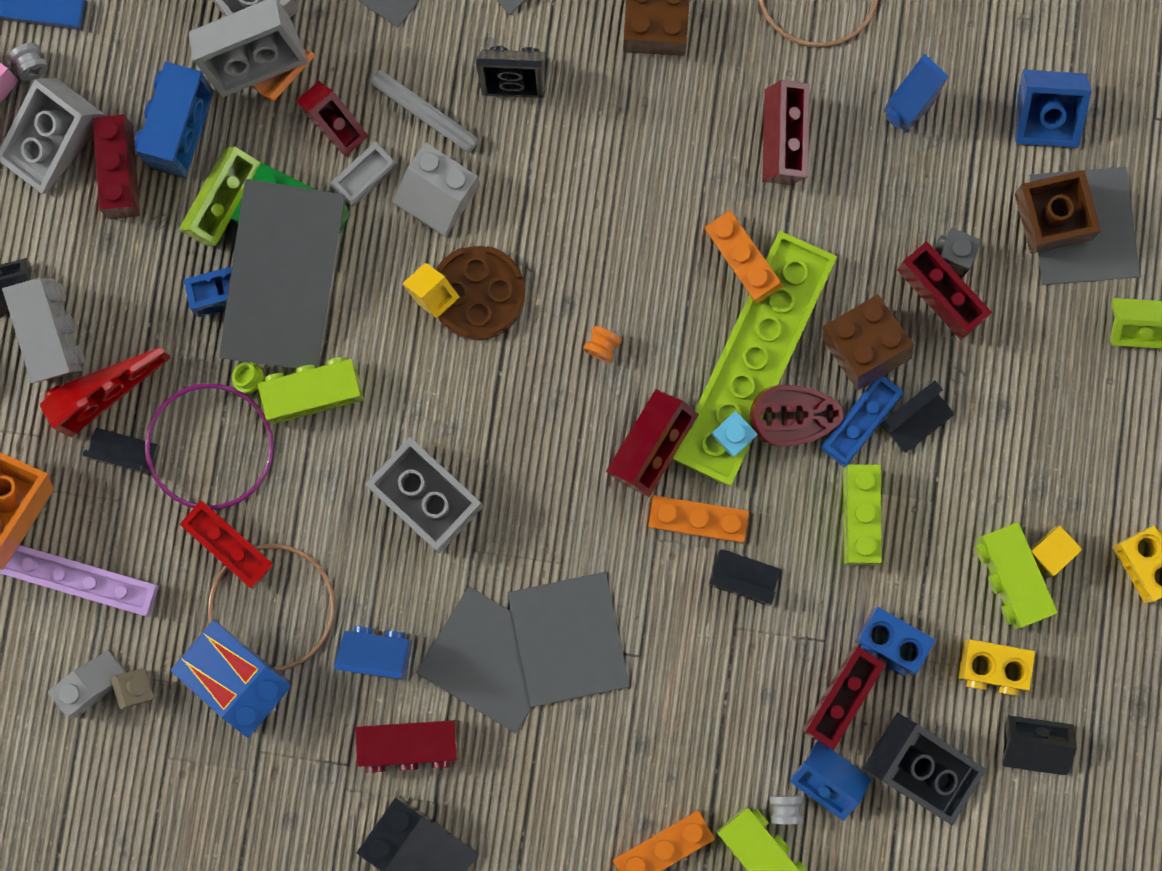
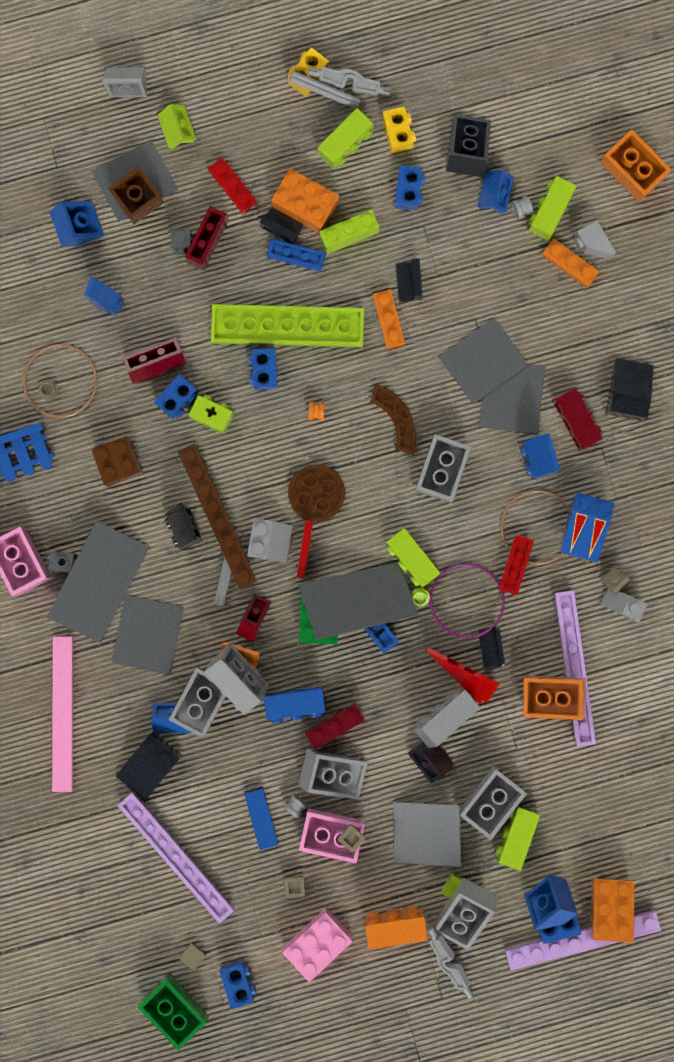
camera: 115 degrees left, 5 degrees up
(219, 196) = (326, 658): lime brick -> none
(364, 174) = (277, 586): light grey tile -> none
(398, 235) = (304, 549): none -> red tile
(430, 290) = (328, 517): yellow panel -> none
(507, 128) = (217, 516): none -> reddish brown plate
(539, 470) = (400, 417): none -> reddish brown tile
(652, 442) = (359, 359): dark red brick -> none
(675, 169) = (200, 413): none -> lime brick
(698, 301) = (268, 369): none -> blue brick
(723, 142) = (171, 393): none -> blue brick
(734, 434) = (335, 317): medium azure plate -> none
(743, 257) = (234, 355): orange plate -> none
(793, 431) = (303, 296): dark red piece -> none
(843, 697) = (451, 201): dark red brick -> none
(867, 342) = (253, 267): reddish brown brick -> none
(940, 468) = (305, 201): none -> orange brick
(1014, 368) = (232, 185): none -> red plate
(1039, 745) = (428, 91): black panel -> none
(1054, 551) = (323, 123): yellow panel -> none
(1108, 574) = (323, 89): none -> light grey axle
(1117, 606) = (359, 83): none -> light grey piece

